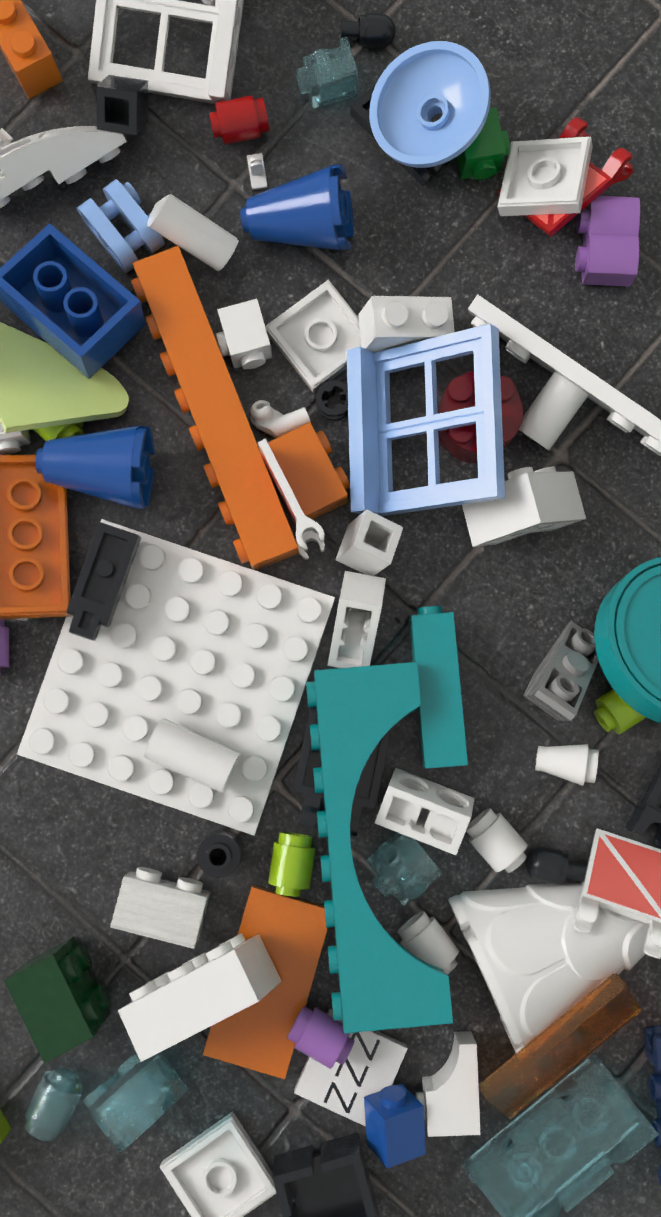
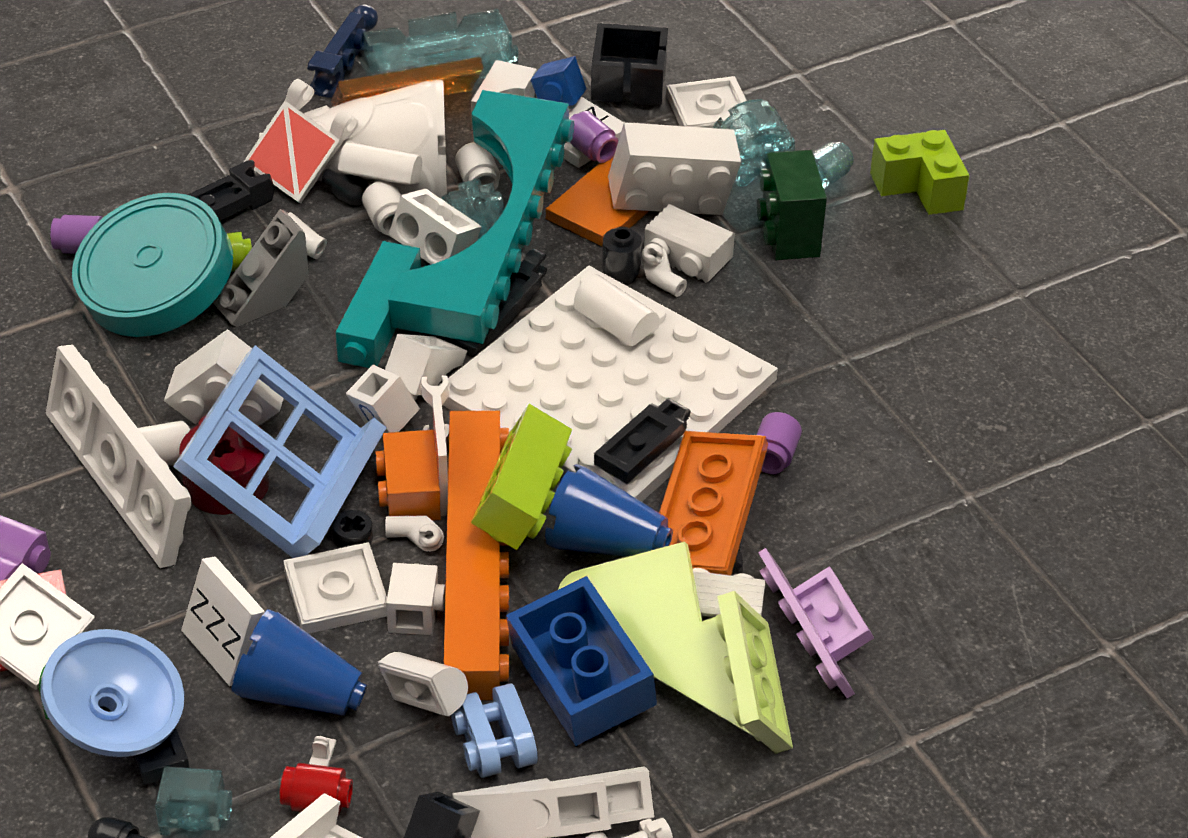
camera: 160 degrees left, 40 degrees down
(179, 856) = (659, 272): none -> white arm
(187, 468) = (524, 478): none -> lime brick
(292, 863) = (564, 239): lime brick -> none
(383, 228) = (220, 618): none -> white tile
(403, 320) = (252, 543): white brick -> none
(524, 882) = (380, 163): none -> white brick

